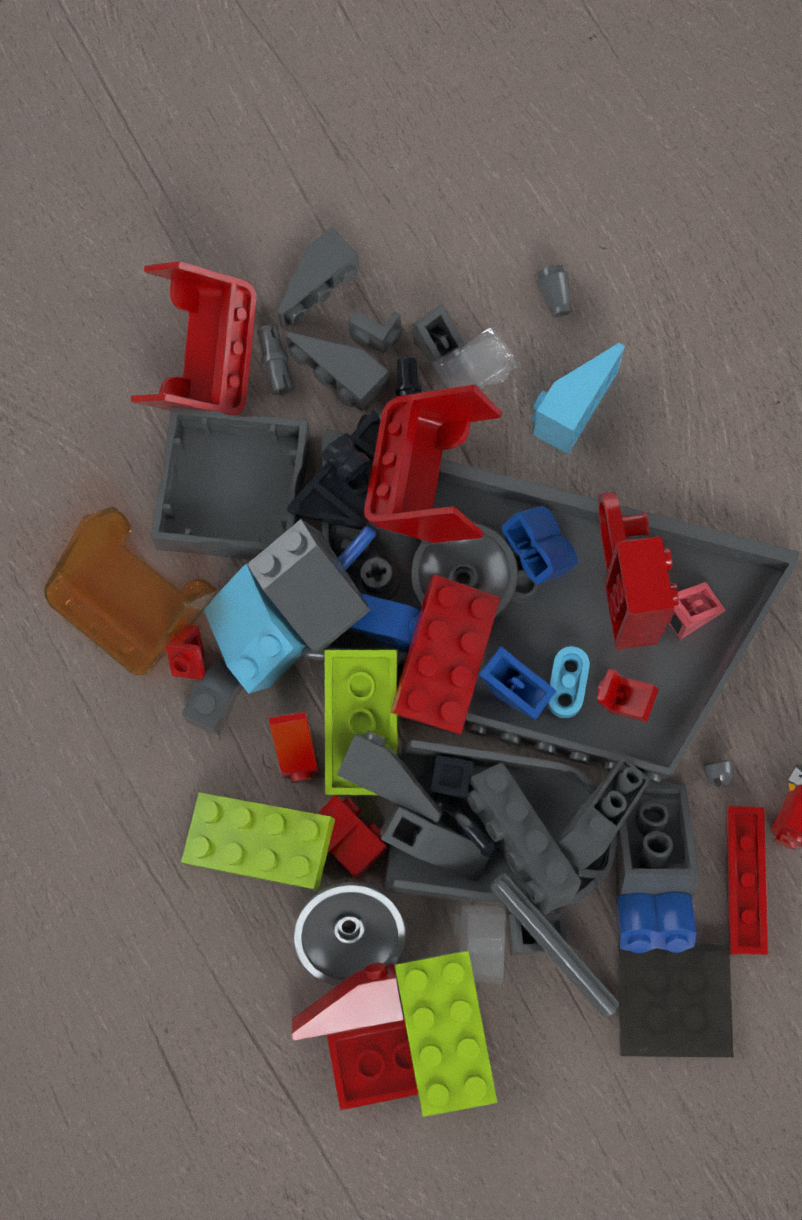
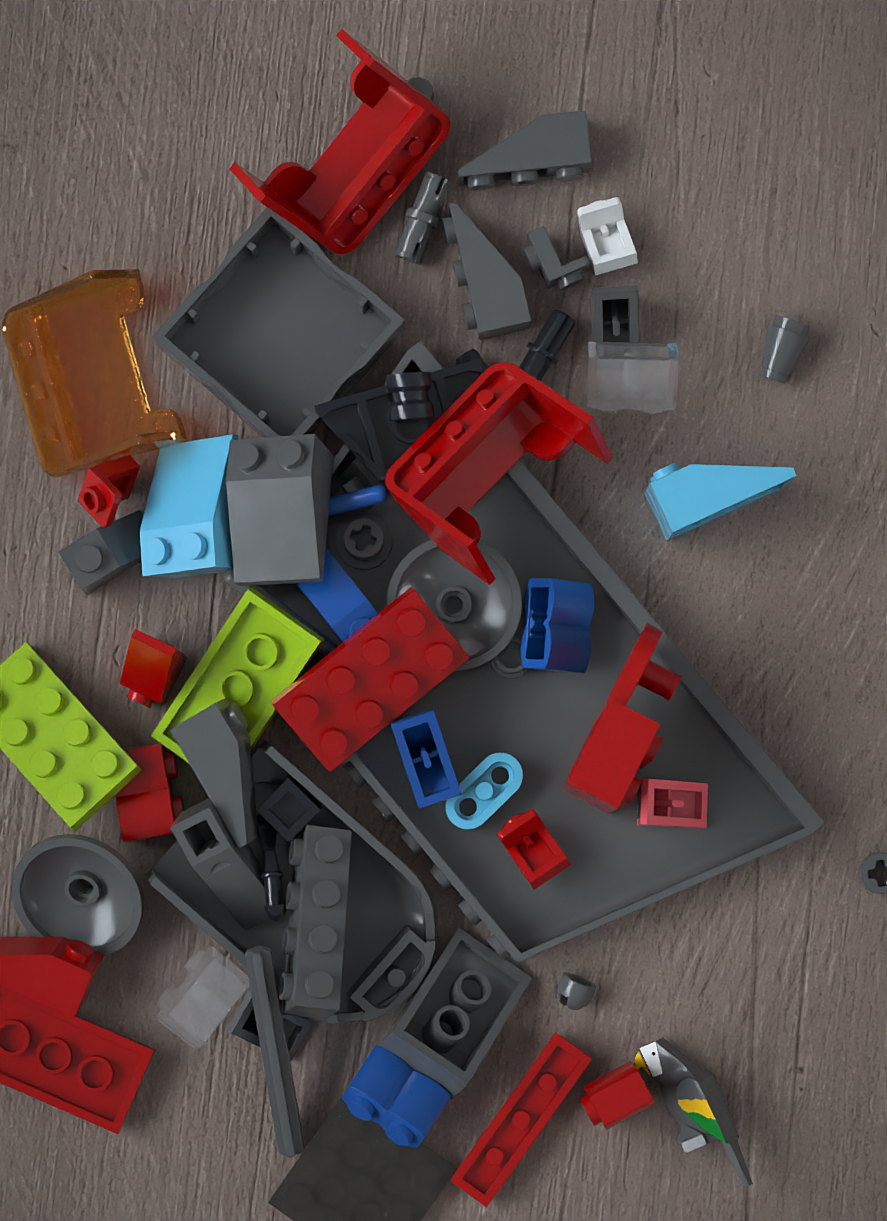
camera: 30 degrees right, 10 degrees up
(397, 294) = (606, 236): none -> white bracket
(445, 1033) = (106, 1060): lime plate -> none
(602, 814) = (416, 955): dark grey slope -> none

